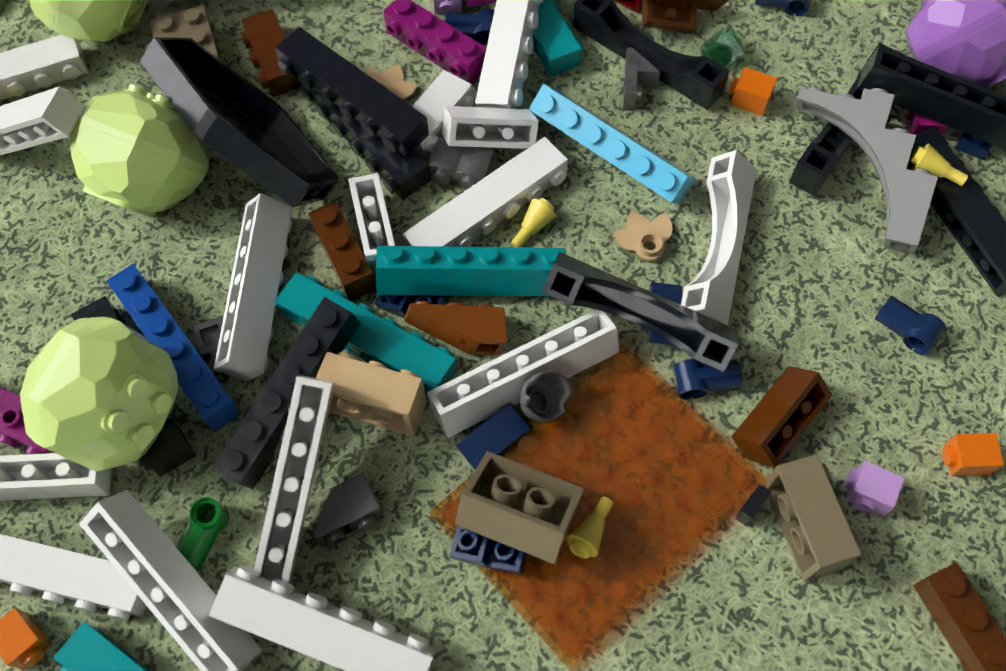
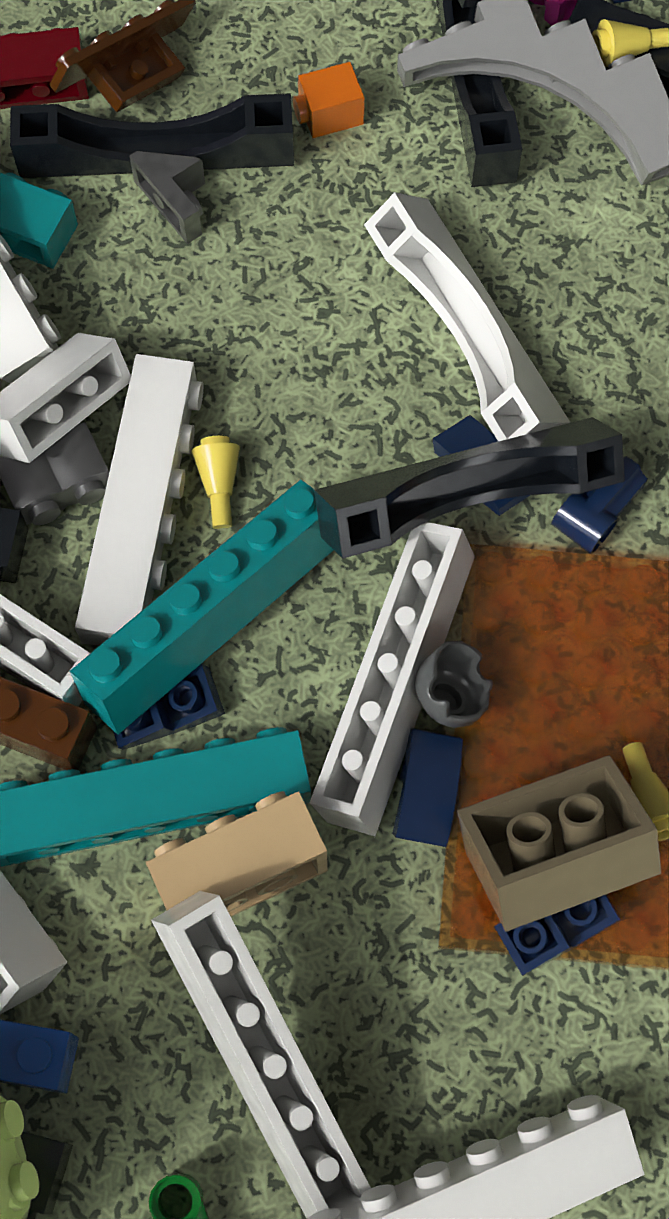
camera: 45 degrees left, 5 degrees up
(257, 436) = (133, 961): black arch -> none
(347, 509) = (340, 1029): dark grey slope -> none
(467, 328) = (269, 683): dark orange slope -> none
(612, 144) = (223, 299): medium azure brick -> none
(643, 232) = (362, 383): tan plate -> none
(723, 46) = (241, 68): clear green panel -> none

